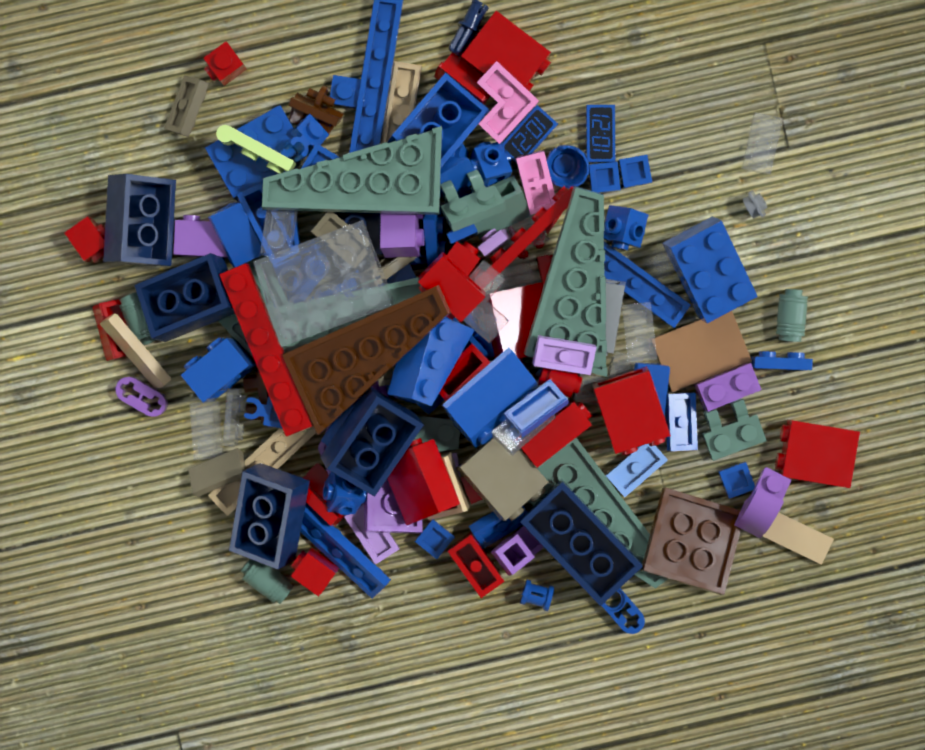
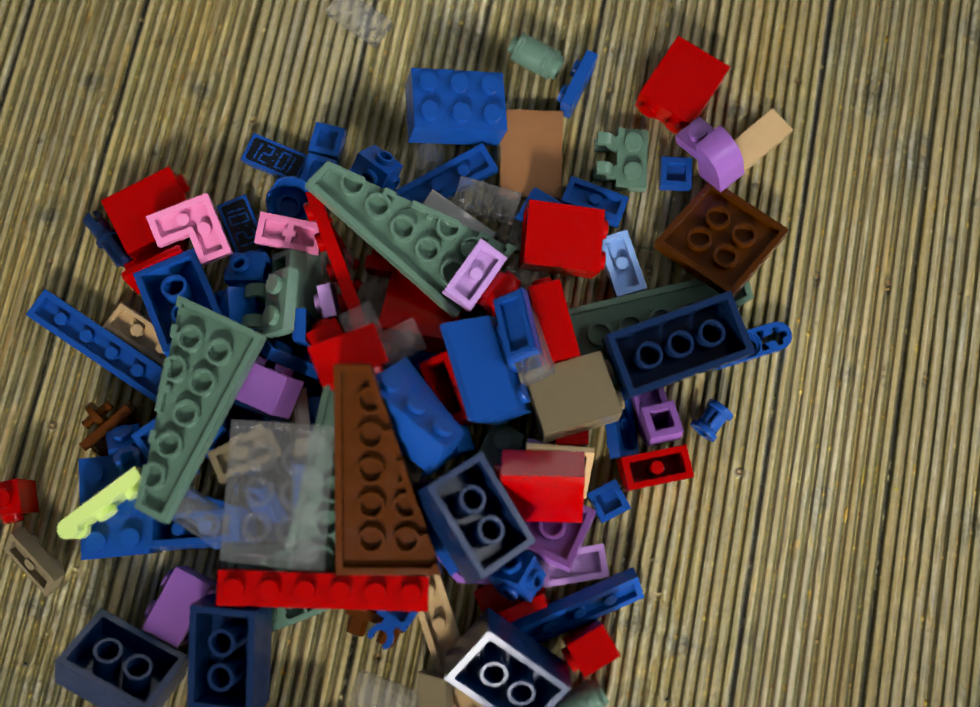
camera: 70 degrees left, 10 degrees down
(218, 369) = (320, 656): blue brick -> none
(232, 428) = (371, 654): clear plate -> none
(236, 234) = (185, 567): blue slope -> none
(345, 91) = (107, 388): blue plate -> none
(727, 387) = (579, 142): medium lavender brick -> none
(755, 204) = (413, 44): light grey plate -> none

